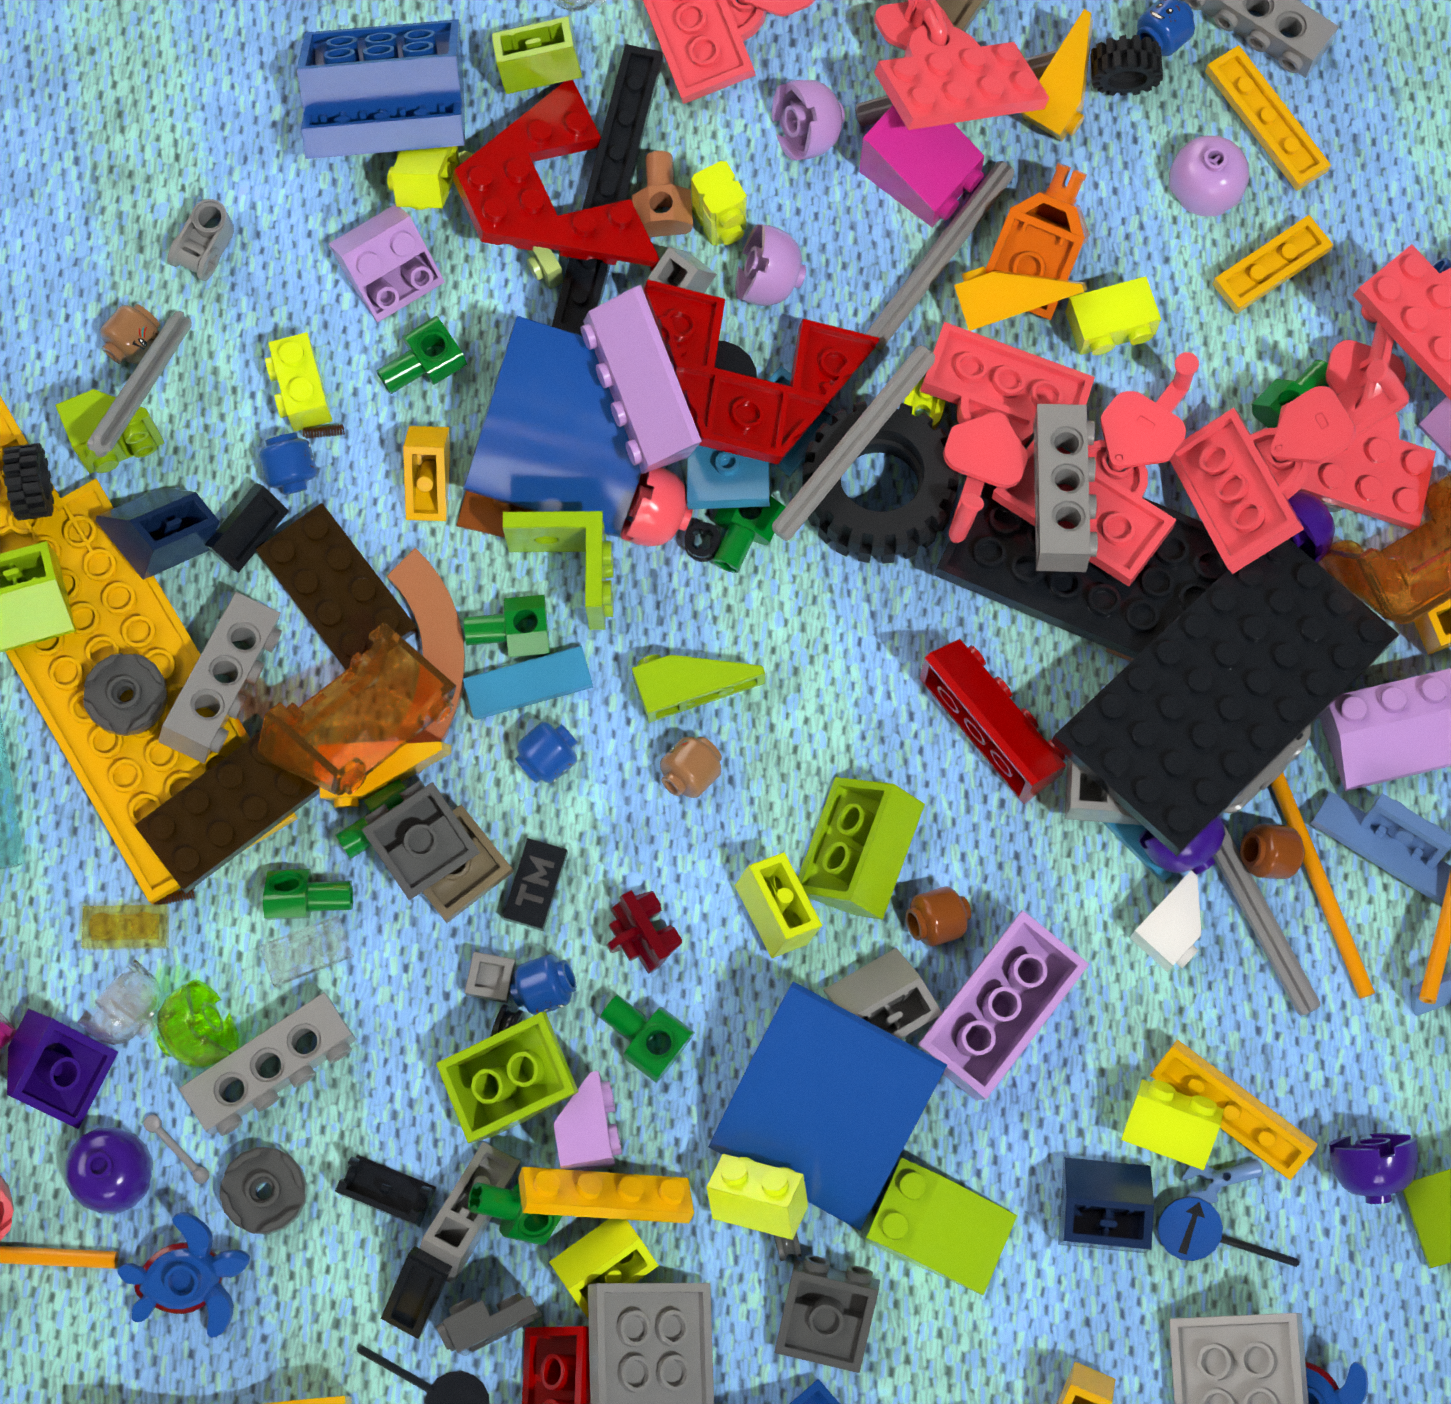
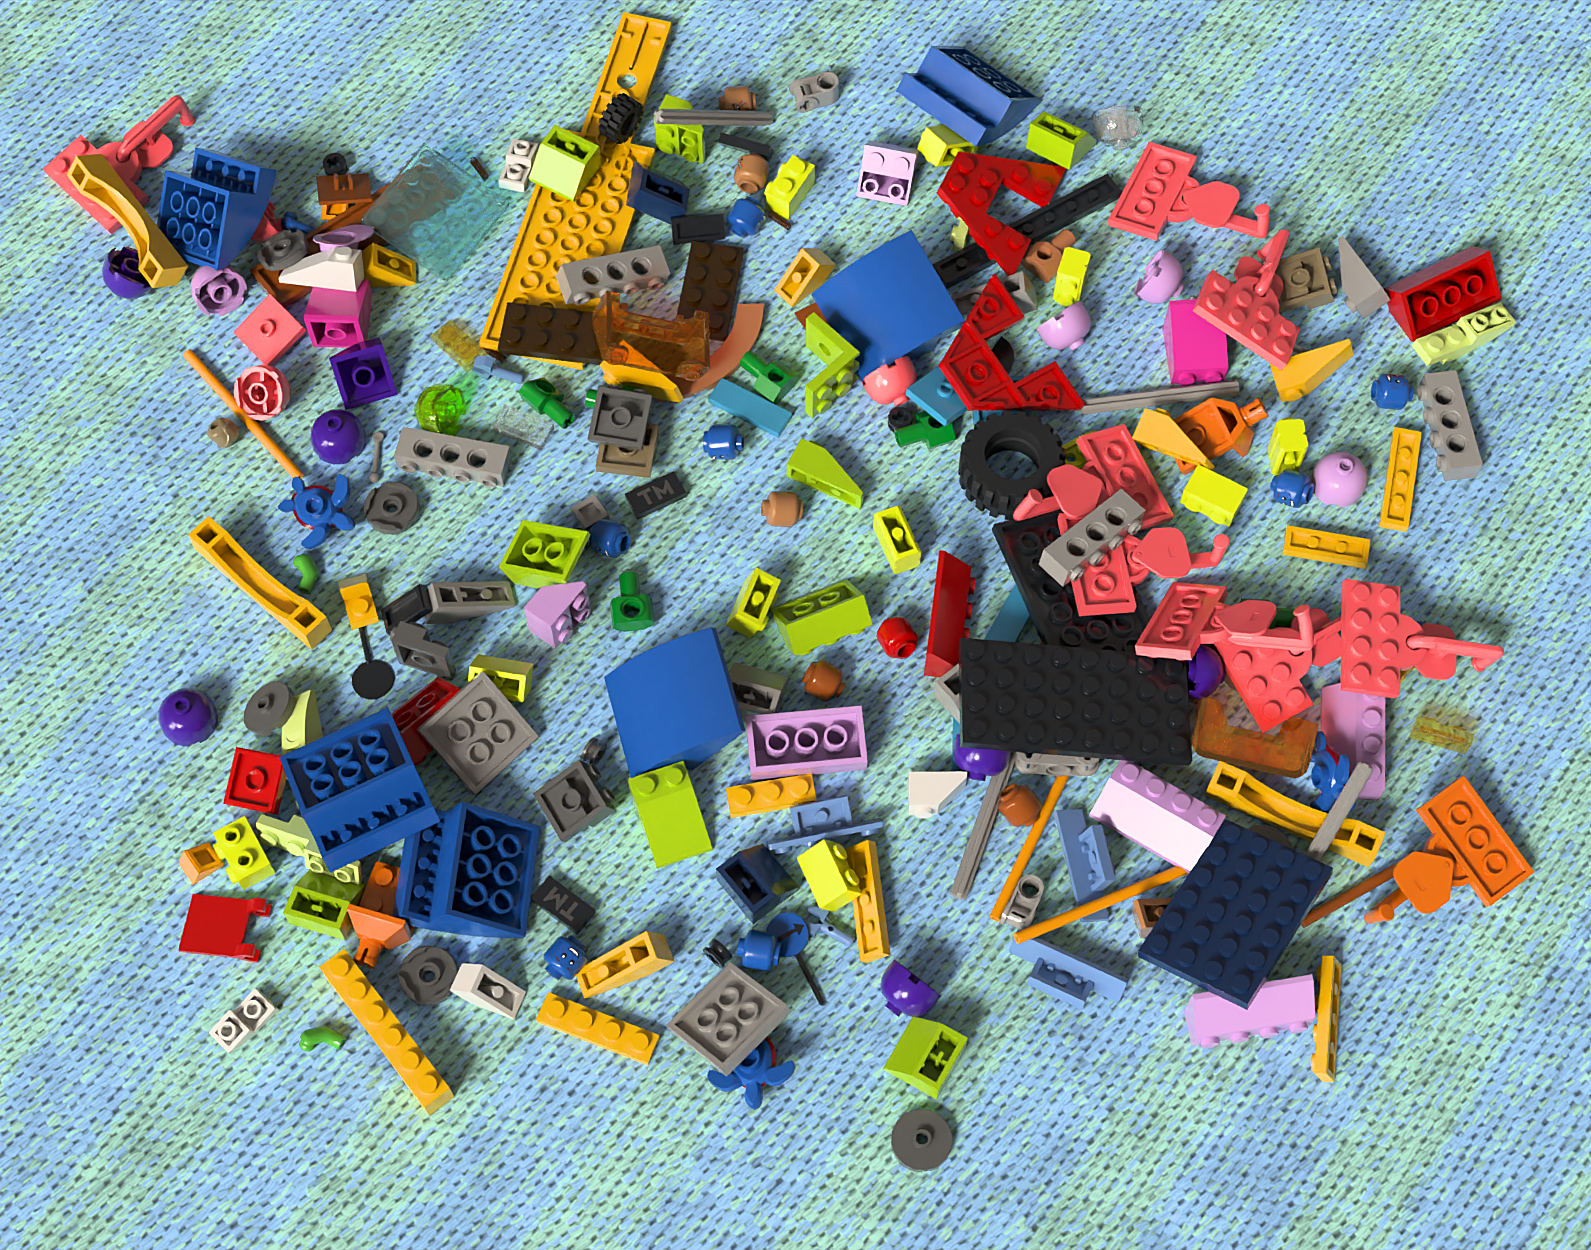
camera: 45 degrees right, 10 degrees down
(112, 678) = (564, 235): dark grey plate -> none
(125, 1007) = (418, 370): clear cylinder -> none
(191, 921) = (485, 366): none -> medium blue bar
(195, 378) = (745, 145): none -> black tile
(237, 405) = (751, 173): none -> medium nougat head
(249, 1356) = (309, 571): none -> bright green arm
(343, 1333) = (358, 601): none -> yellow slope
(386, 1190) = (443, 556): black hinge -> none
(415, 361) = (855, 226): green piece -> none
(507, 1206) = (488, 615): green piece -> none
(605, 1195) = (533, 647): yellow plate -> none
(636, 933) = (684, 548): dark red hips -> none
(640, 381) = (935, 307): lavender slope -> none
(757, 1196) = (600, 715): neon yellow brick -> none
(850, 683) = (896, 539): none -> neon yellow brick
(853, 443) = (1012, 427): light grey axle -> none
(961, 791) = (897, 637): none -> red head
(1014, 1098) = (770, 795): none -> yellow plate
(1051, 662) = (1010, 619): none -> dark azure tile
(1102, 1074) = (822, 821): none -> medium blue bracket
(1126, 65) = (1348, 389): black tyre -> none
(1132, 189) = (1287, 445): none -> neon yellow brick
(1146, 1323) = (717, 953): none -> black bush
(1177, 231) = (1292, 488): none -> blue head
(1187, 1276) = (759, 950): none -> blue head
(1385, 956) = (1022, 908): none -> light grey piece

